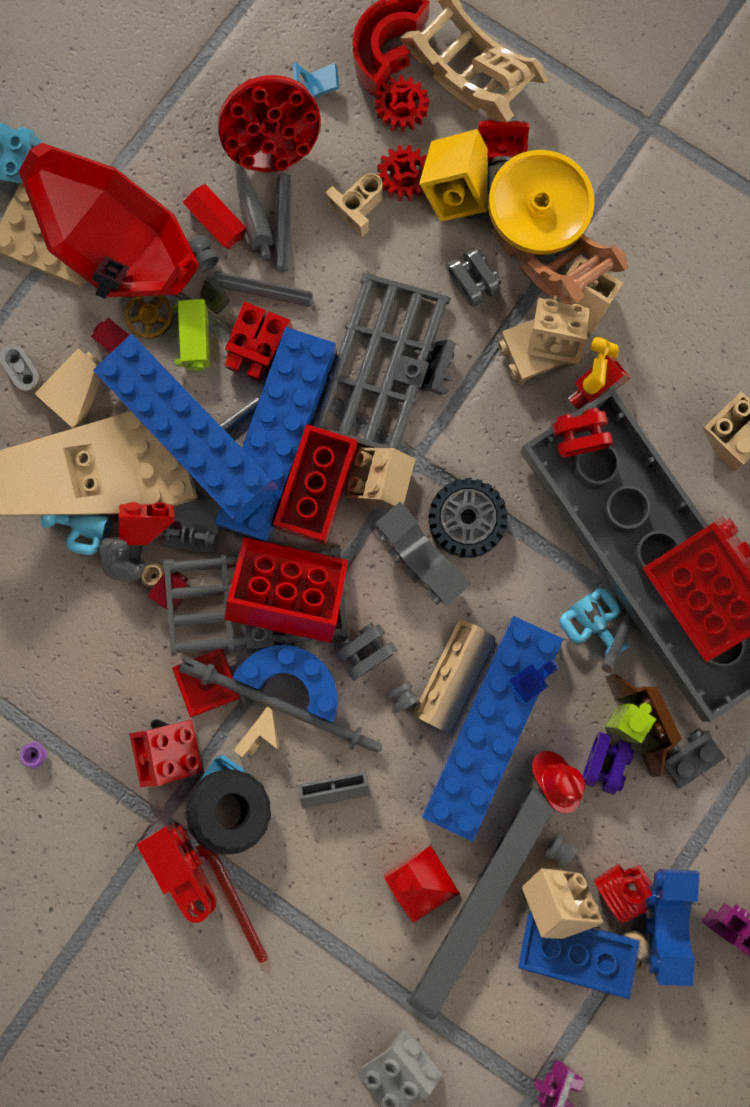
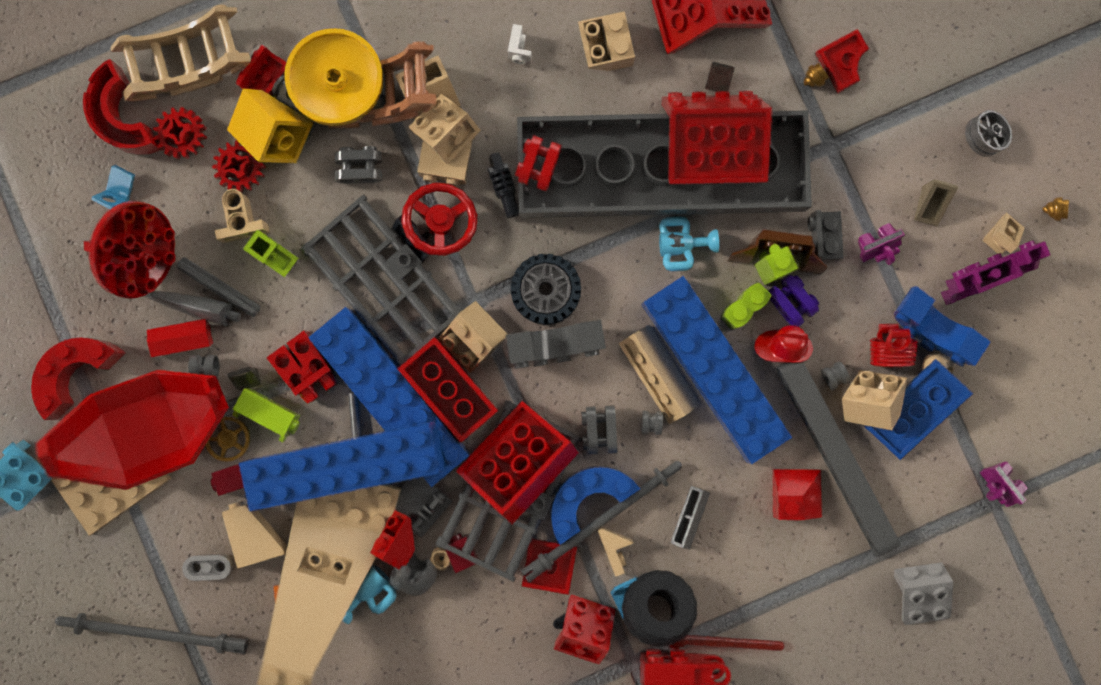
camera: 60 degrees left, 5 degrees up
(109, 275) = (178, 452): black plate -> none
(125, 127) = (58, 364): none -> red brick
(263, 289) = (263, 335): dark grey axle -> none
(343, 247) = (270, 253): none -> lime brick
(398, 57) = (139, 112): red plate -> none
(471, 378) = (439, 219): none -> red piece
(501, 68) = (202, 38): tan plate -> none
(531, 681) = (701, 321): clear blue plate -> none
(541, 418) = (503, 185): none -> black hinge
(566, 717) = (749, 301): none -> lime brick
(602, 377) = (503, 119): torso -> none
(617, 644) = (711, 237): flat silver bar -> none
(684, 348) = (516, 44): none -> white bracket
(716, 821) = (883, 248): none -> magenta hips

